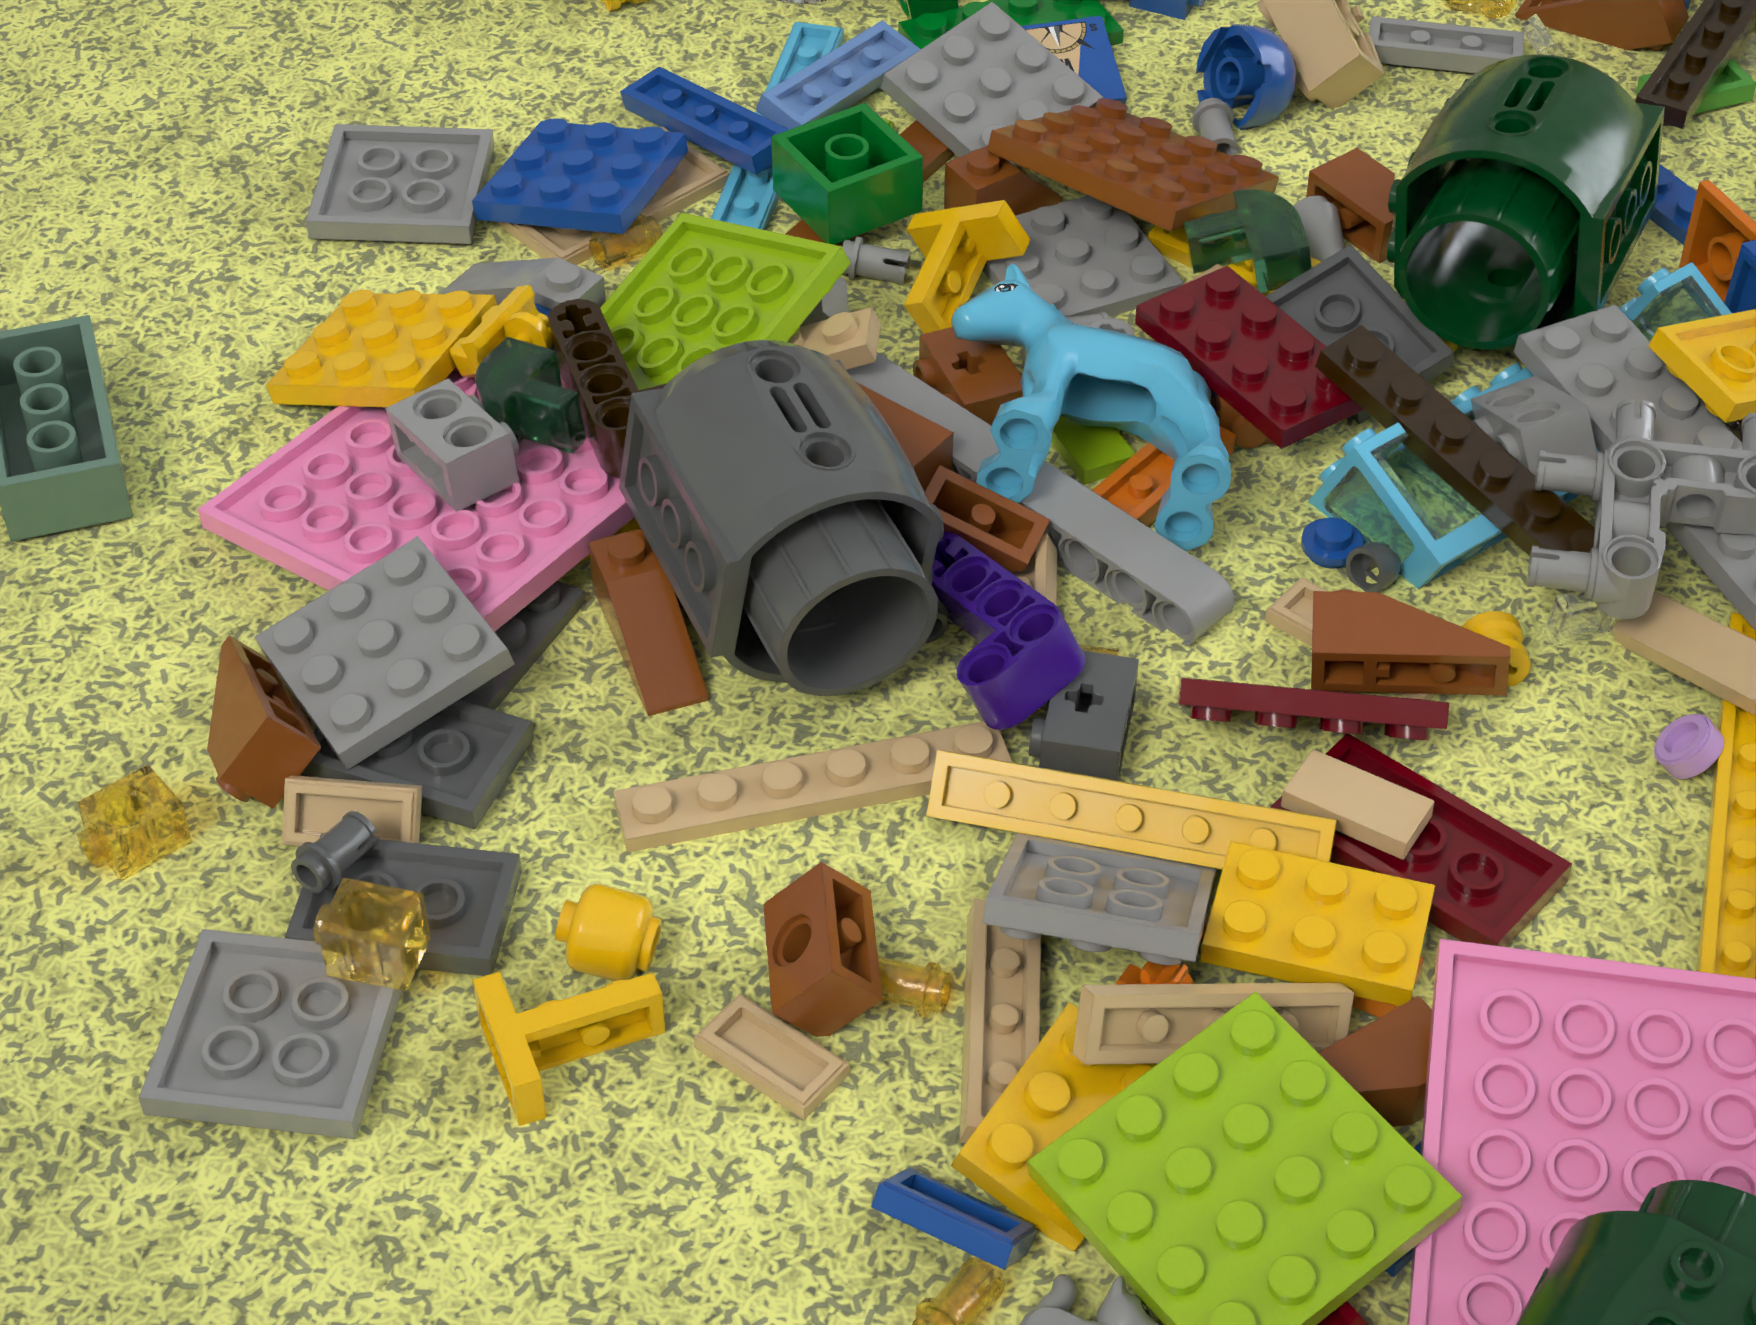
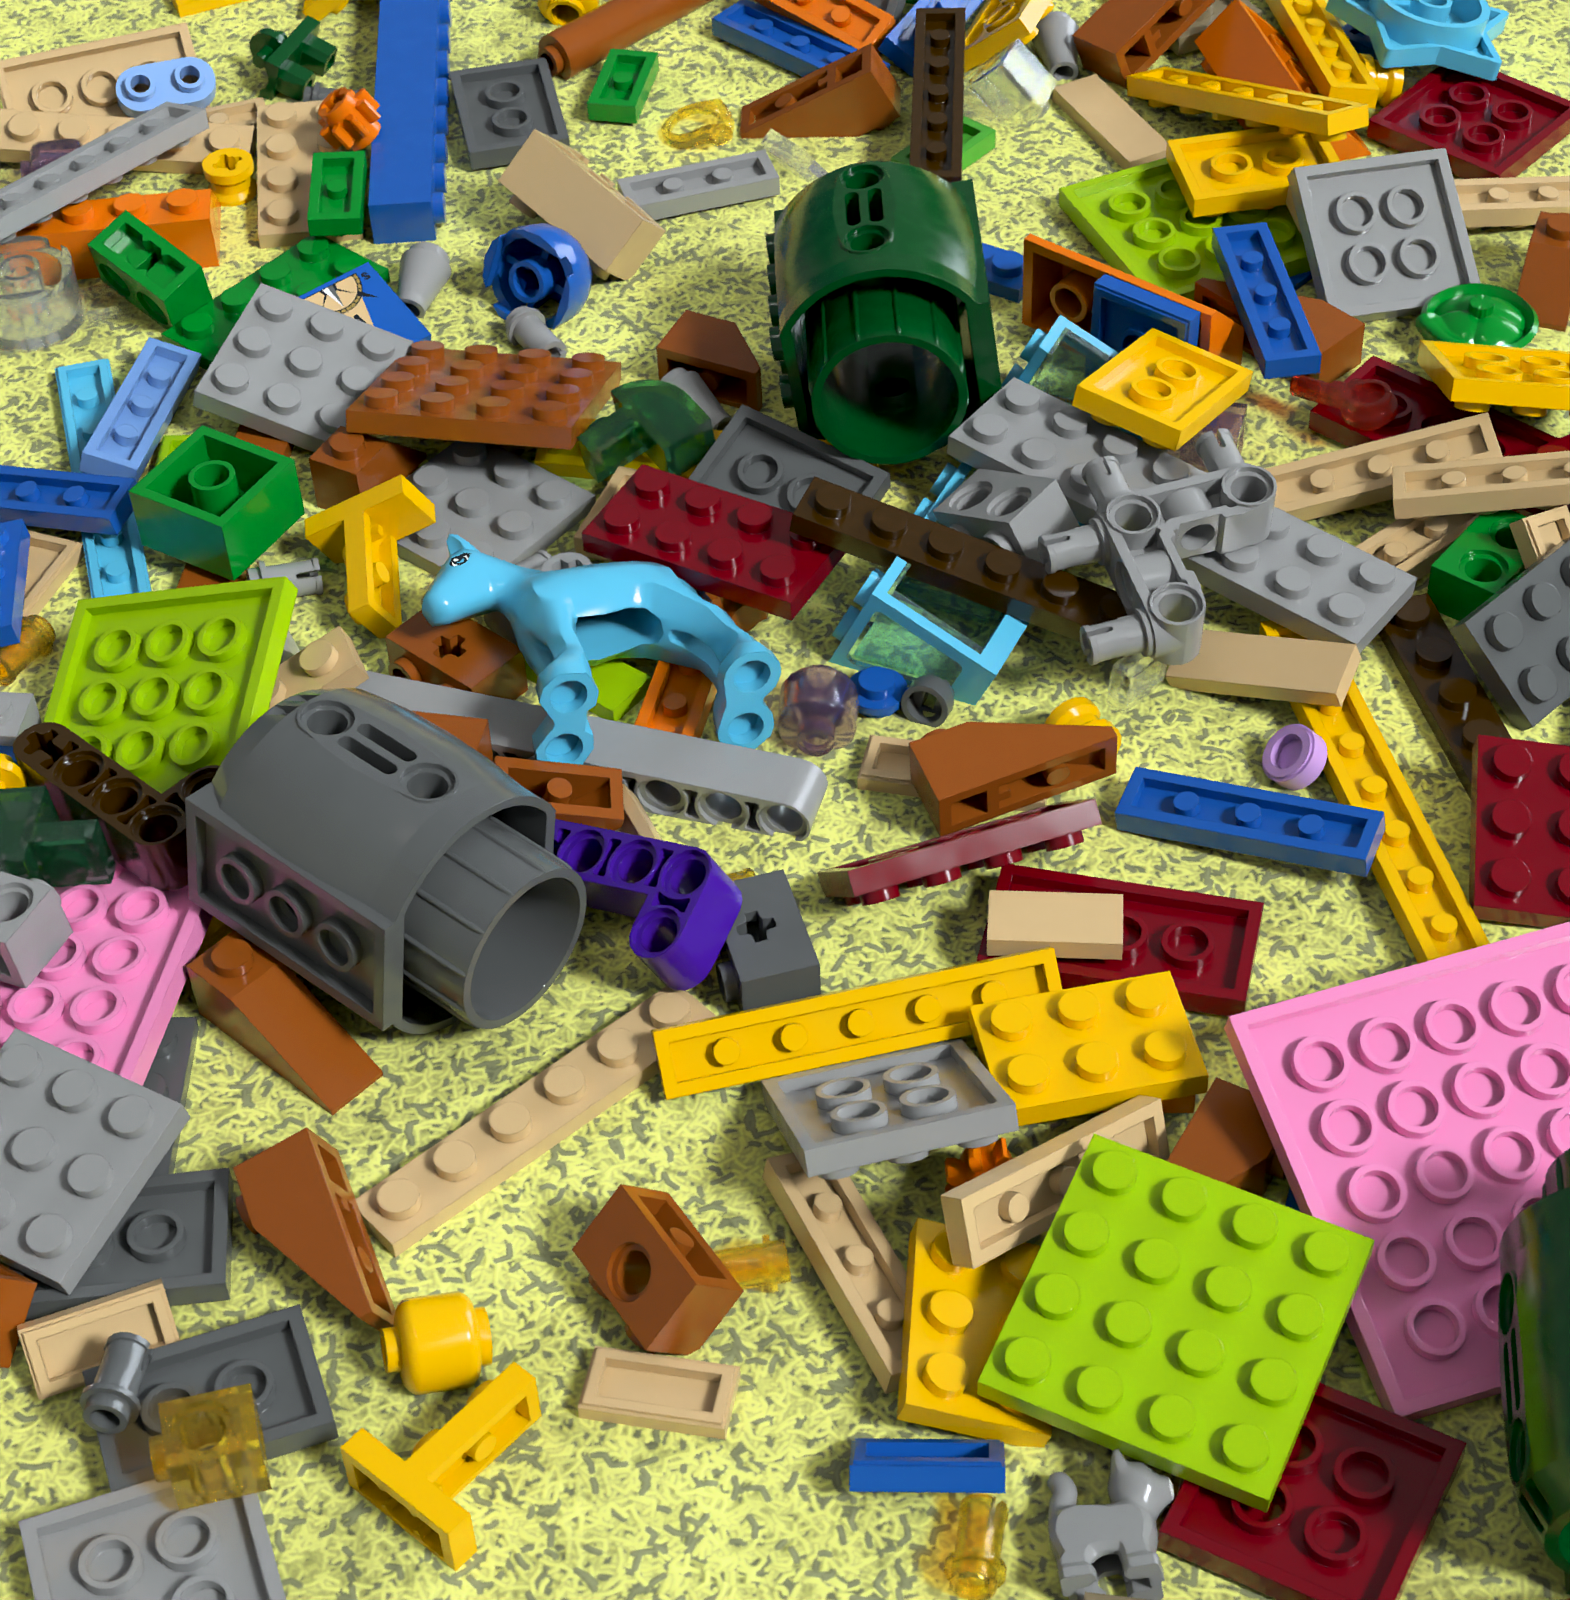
camera: 25 degrees left, 0 degrees up
(570, 788) = (308, 1211): none -> dark orange slope
(1148, 46) = (422, 276): none -> light grey cone
(1267, 535) = (817, 707): none -> head
(1607, 787) = (1251, 821): none -> blue plate

